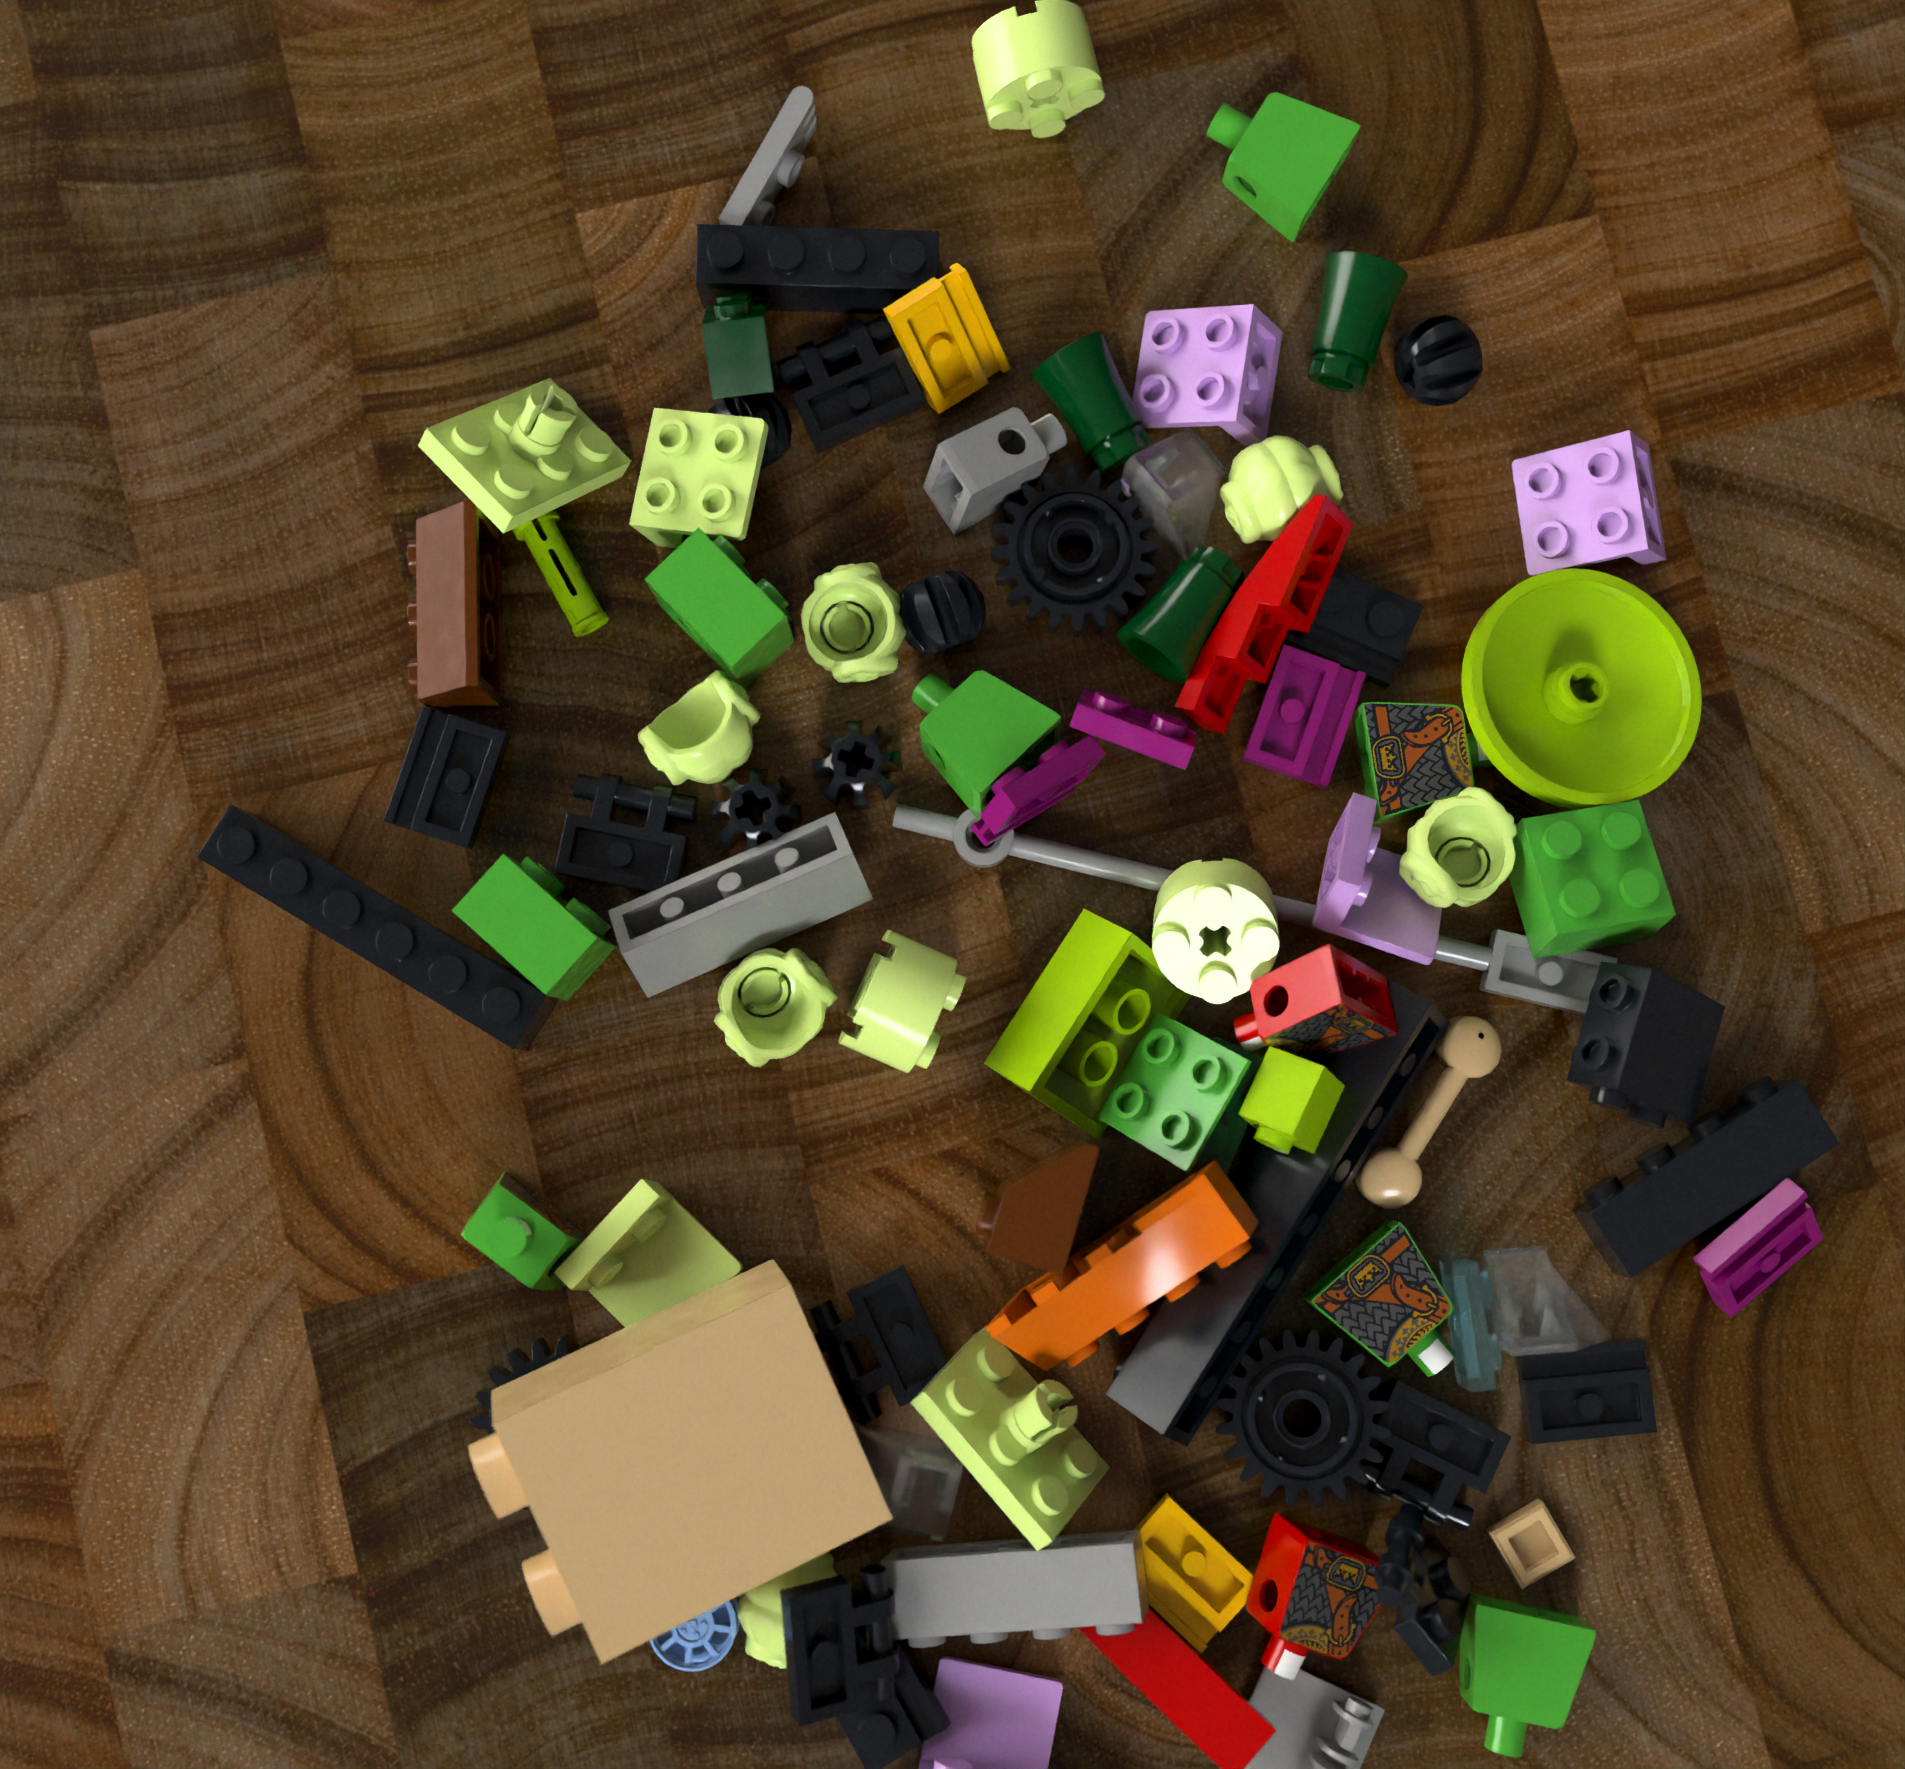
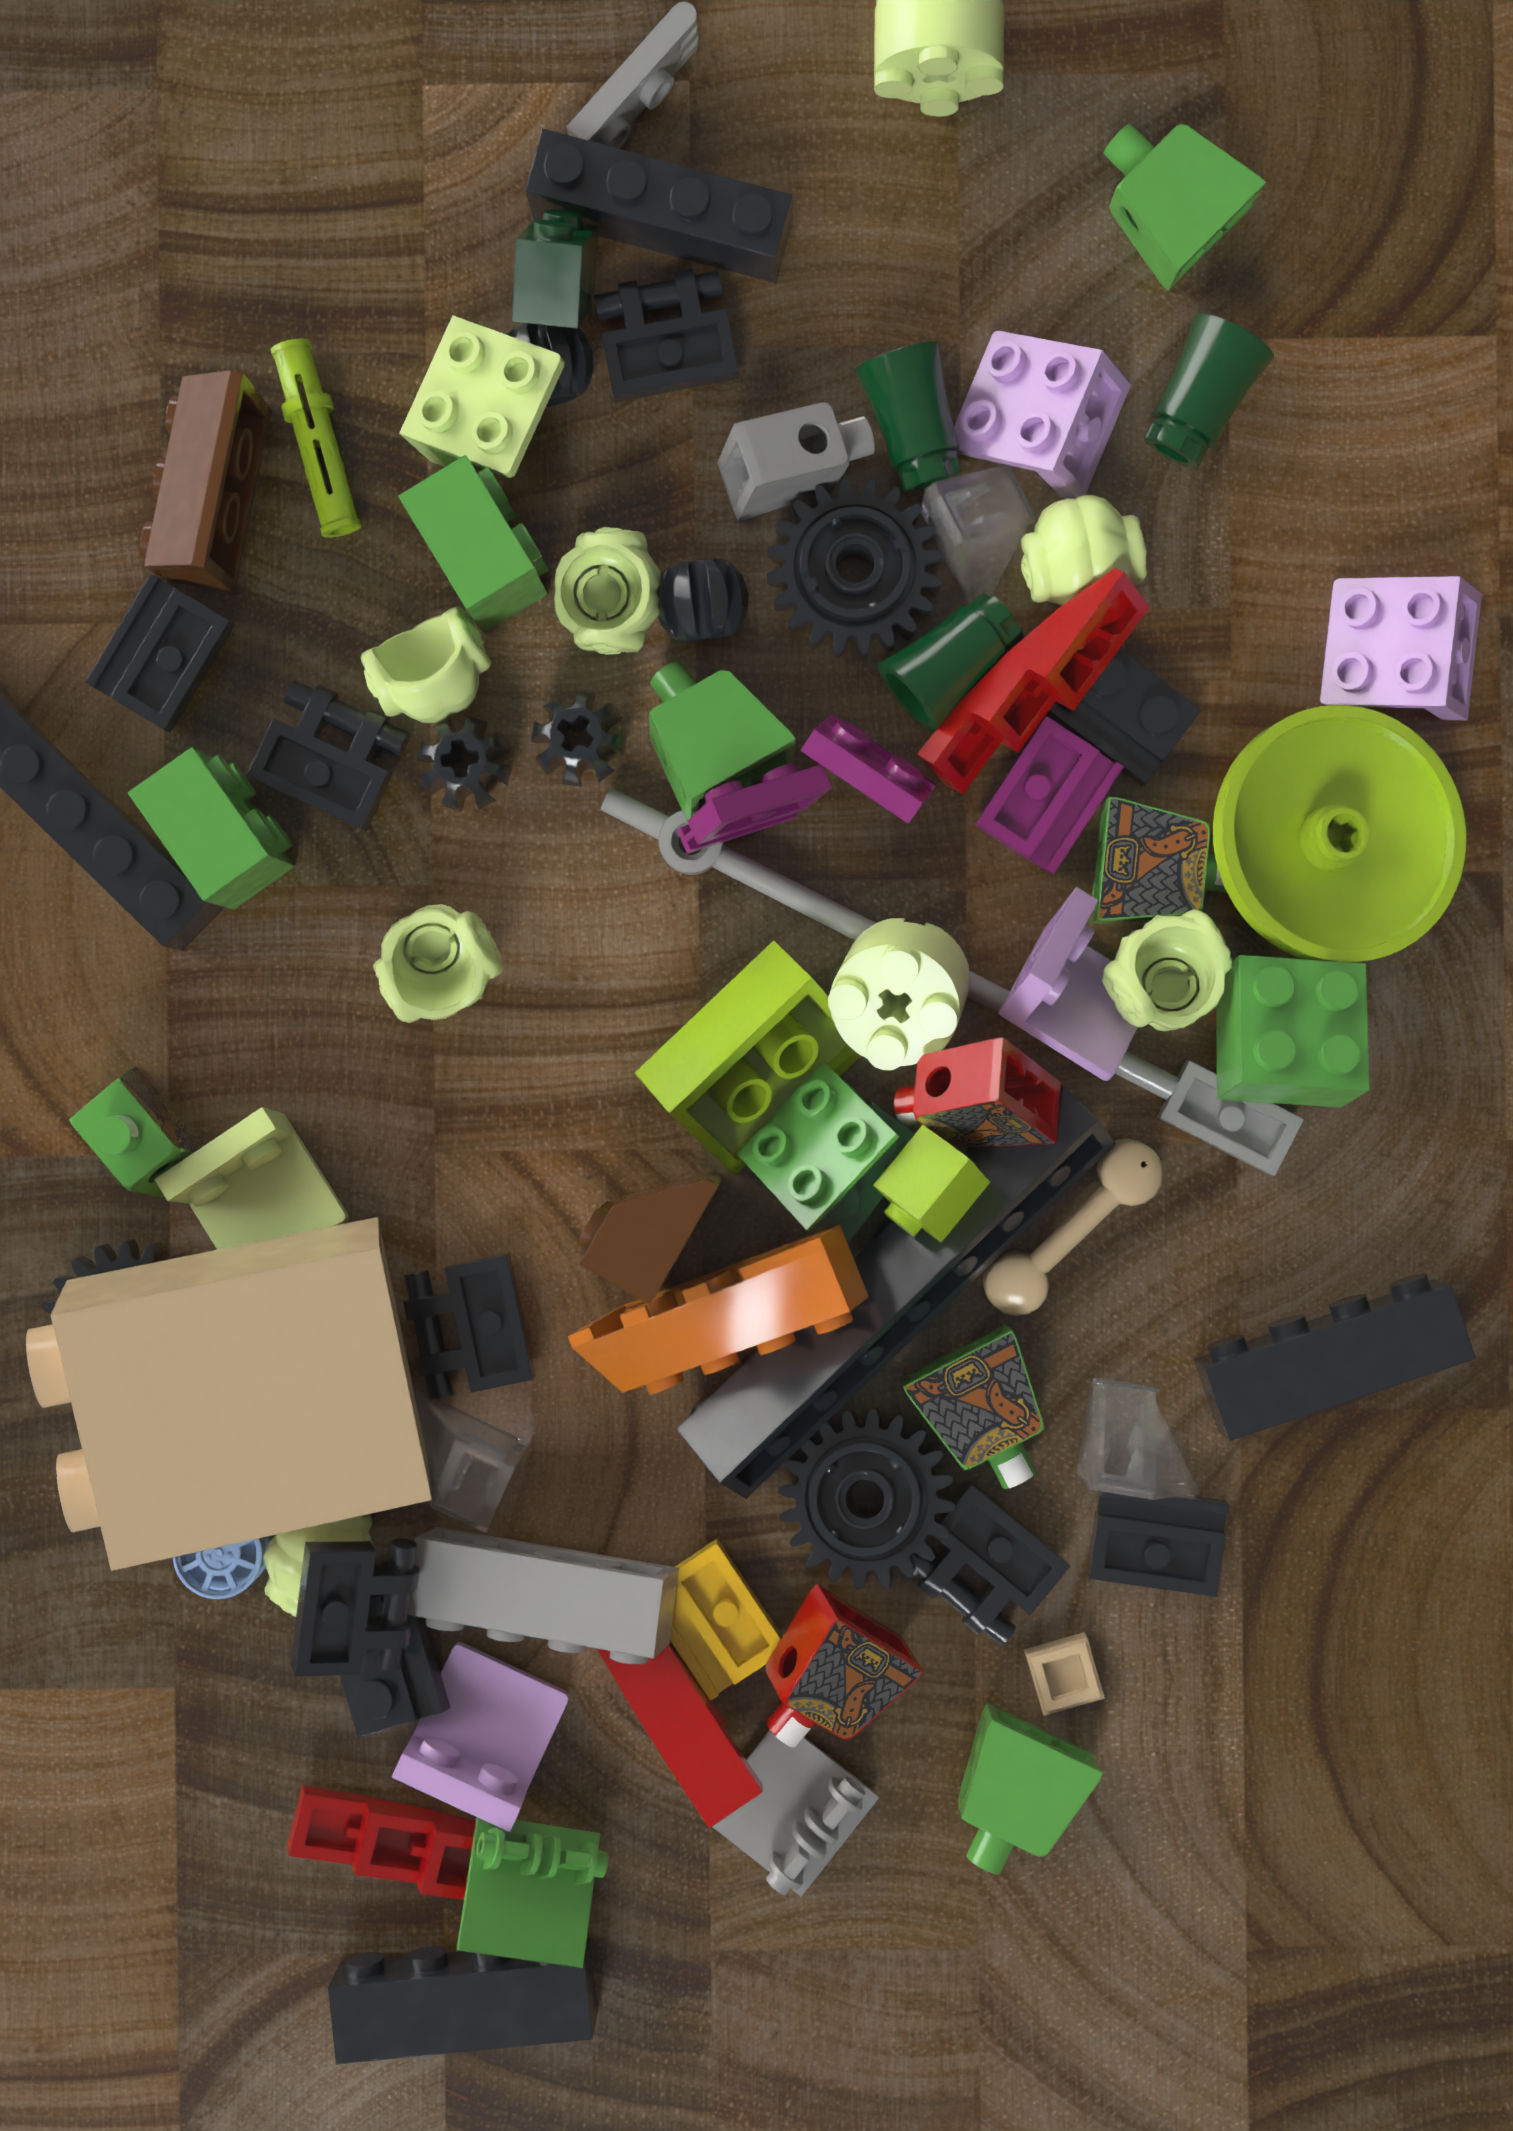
camera: 15 degrees right, 5 degrees up
(524, 454) = (308, 333): yellowish green plate -> none
(739, 905) = (425, 854): light grey brick -> none
(902, 1003) = (565, 992): yellowish green brick -> none
(947, 338) = (775, 311): yellow plate -> none
(1013, 1436) = (573, 1448): yellowish green plate -> none
(1425, 1588) = (944, 1693): black plate -> none
(1438, 360) = (1283, 454): black piece -> none
(1476, 1350) = (1063, 1419): clear light blue plate -> none
(1645, 1044) = (1306, 1213): black brick -> none
(1758, 1247) = (1368, 1441): magenta plate -> none

